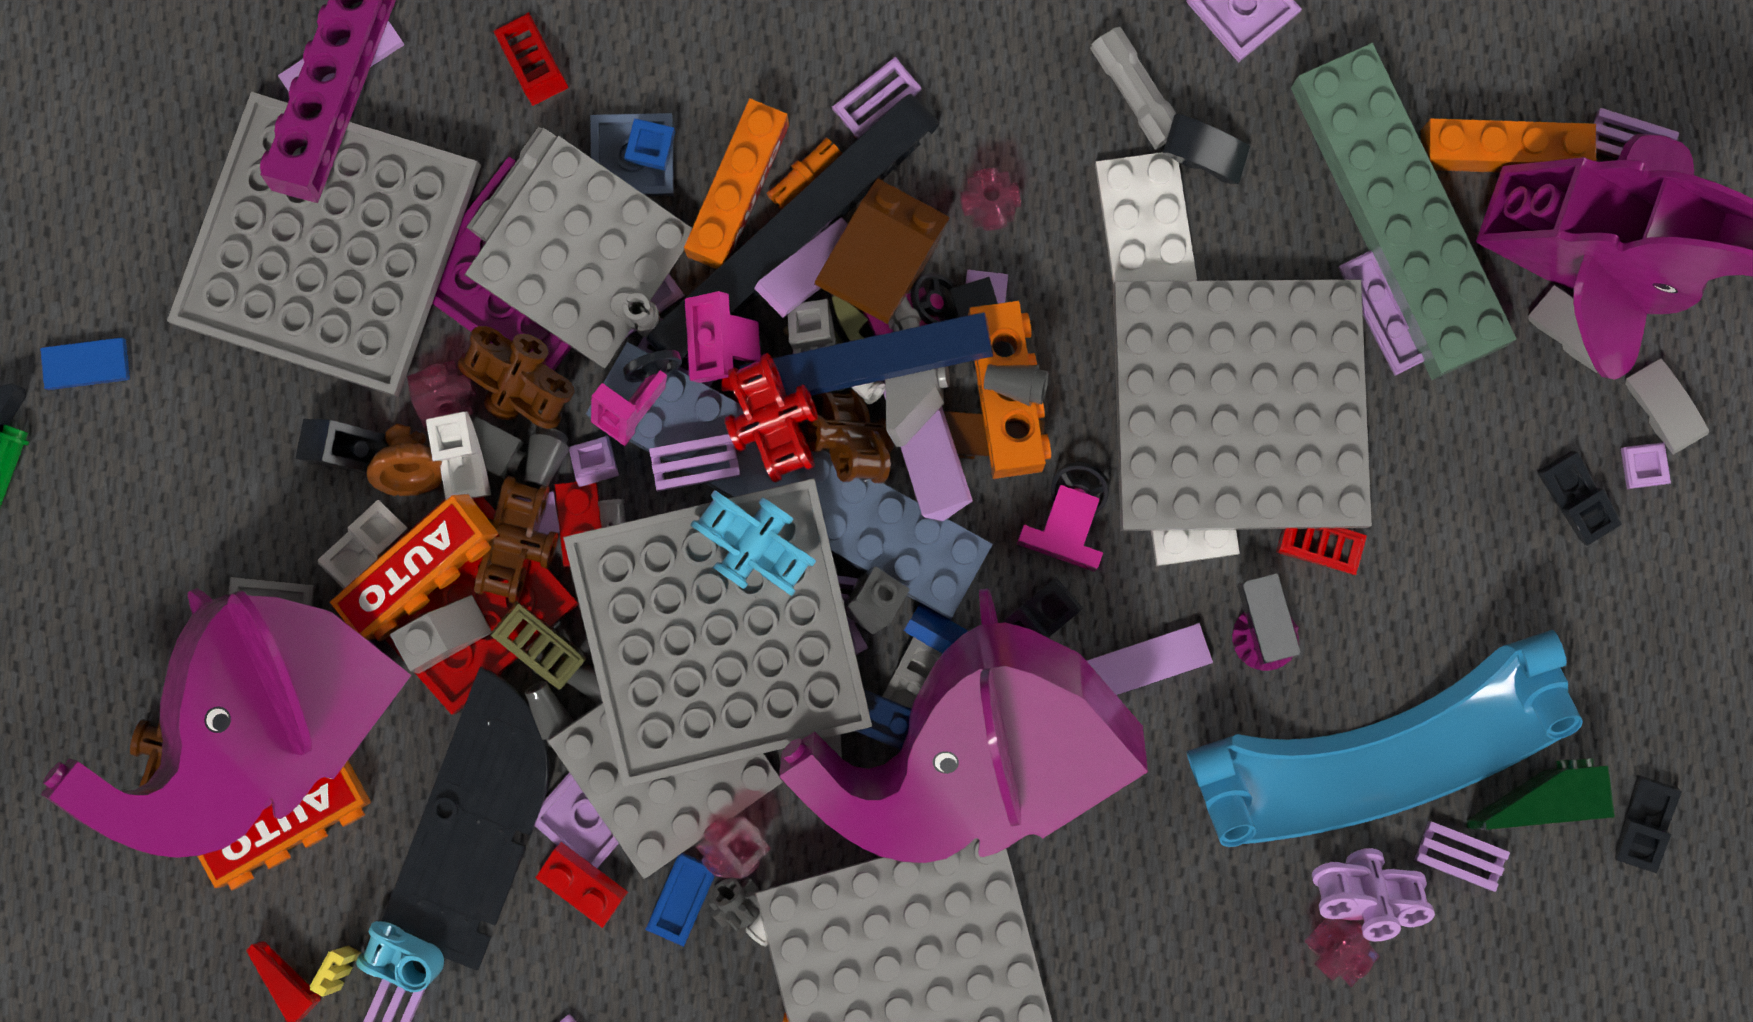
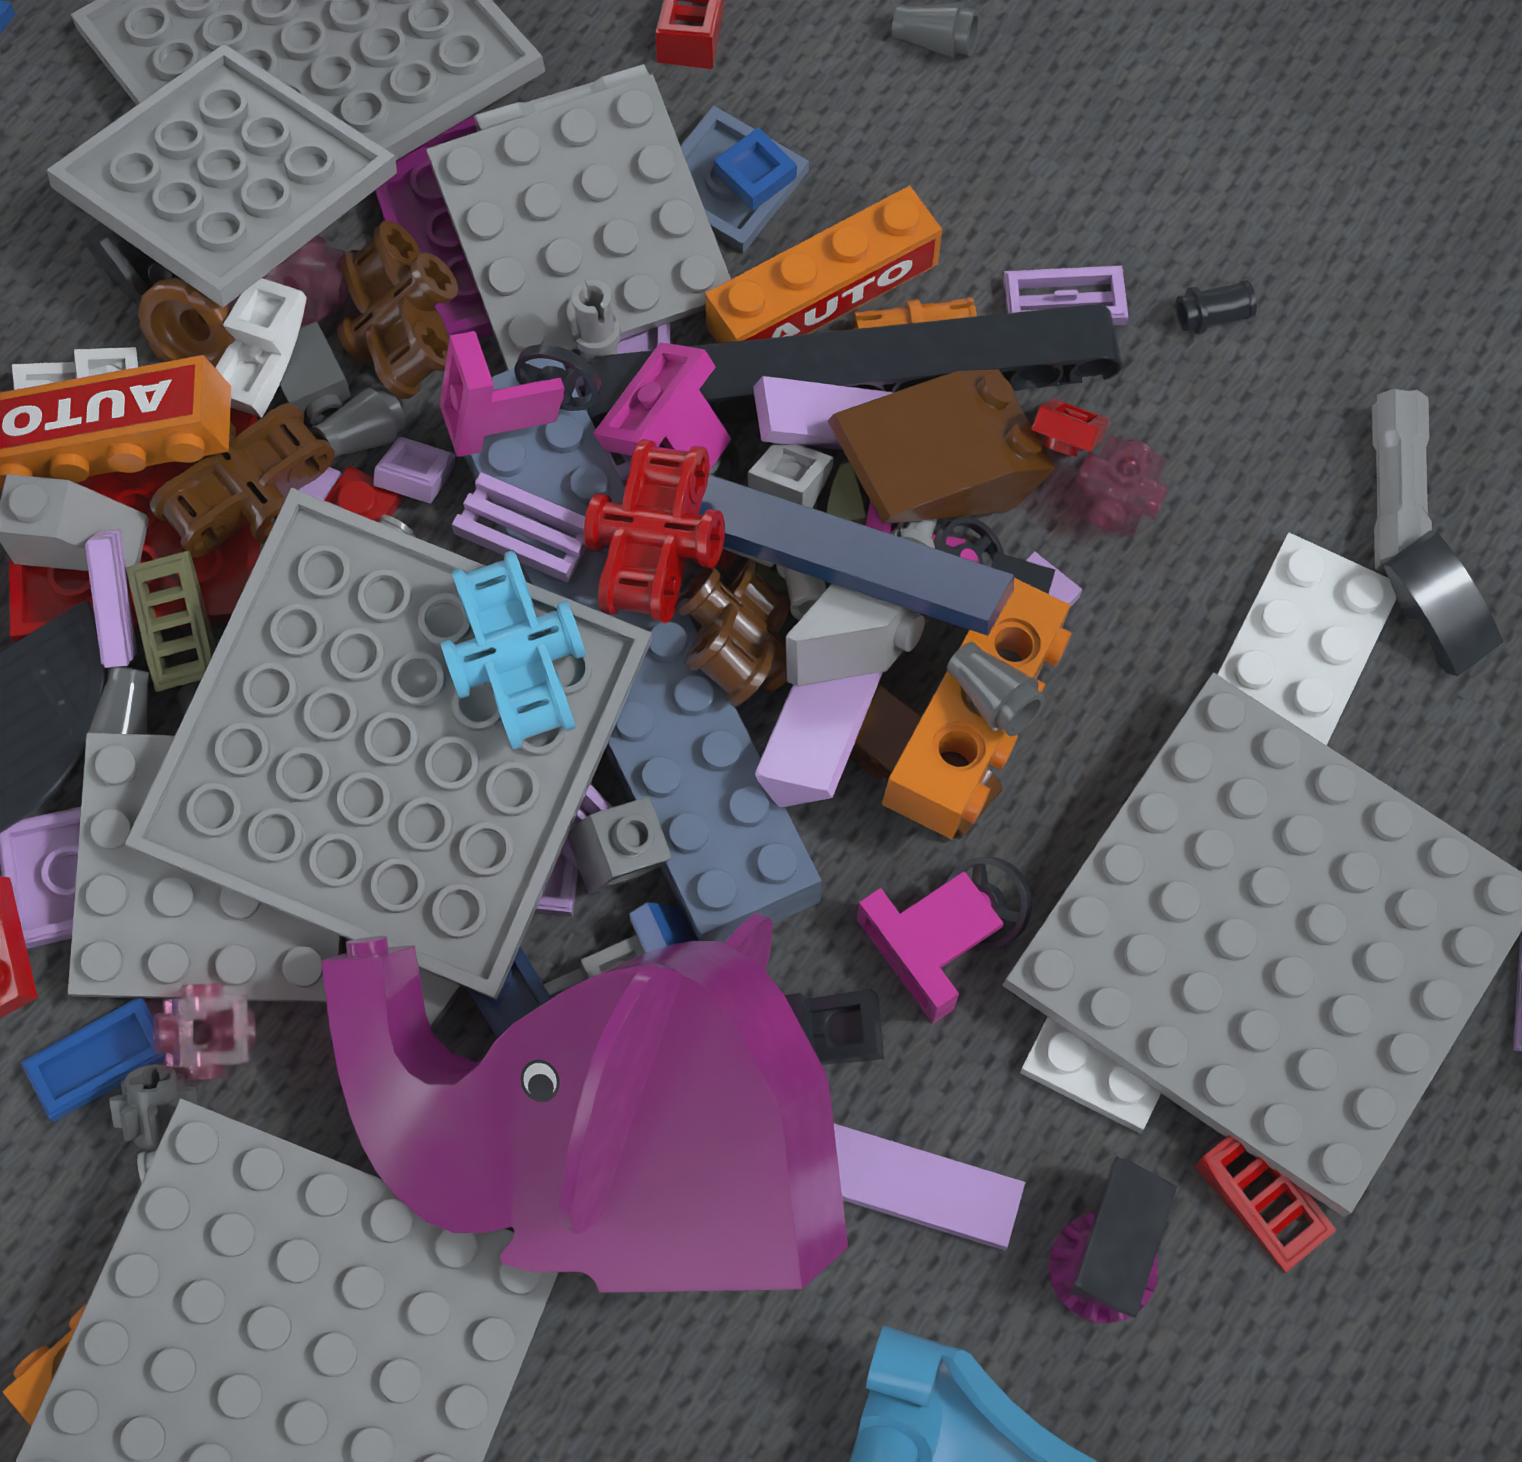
camera: 35 degrees right, 15 degrees down
(360, 370) = (222, 173): none -> light grey plate
(498, 658) = (111, 598): none -> lavender tile
(940, 185) = (1069, 427): none -> red plate
(964, 46) = (1215, 306): none -> black pin

